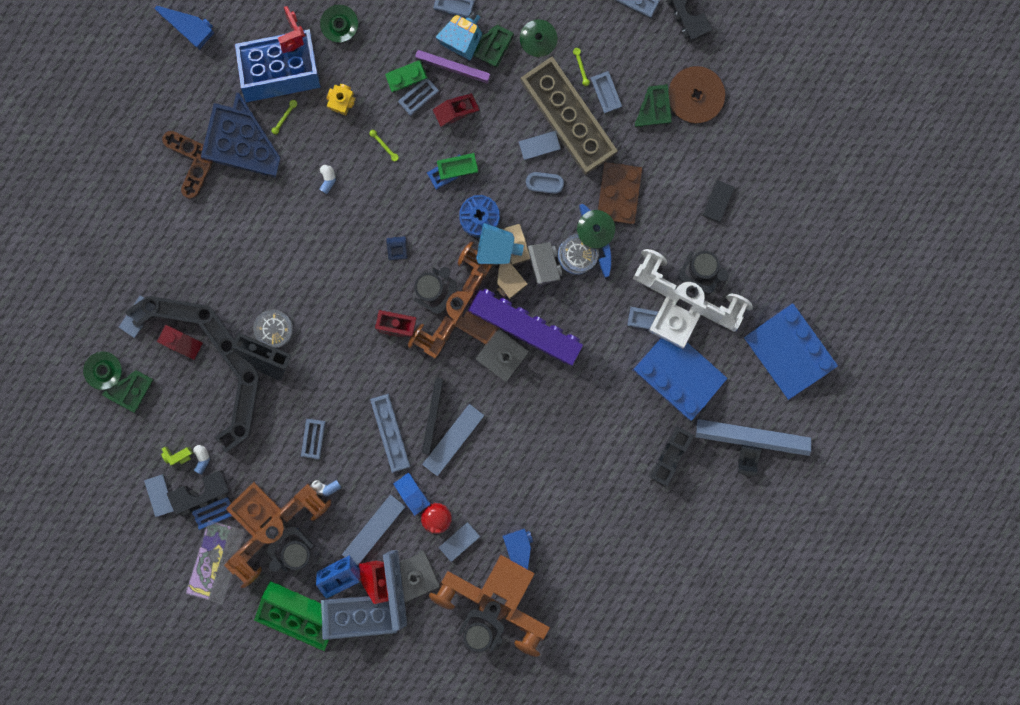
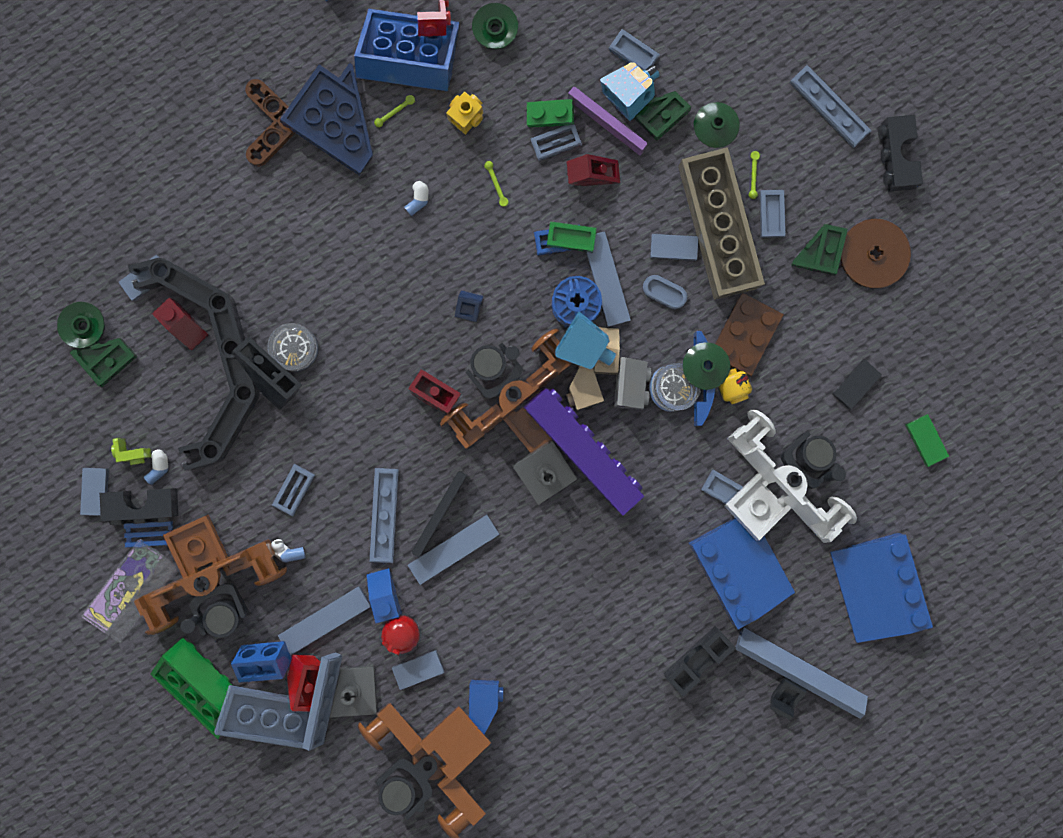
camera: 25 degrees right, 0 degrees up
(497, 191) = (607, 282): none -> sand blue tile
(624, 236) = (735, 387): none -> yellow head
(787, 225) = (927, 440): none -> green tile

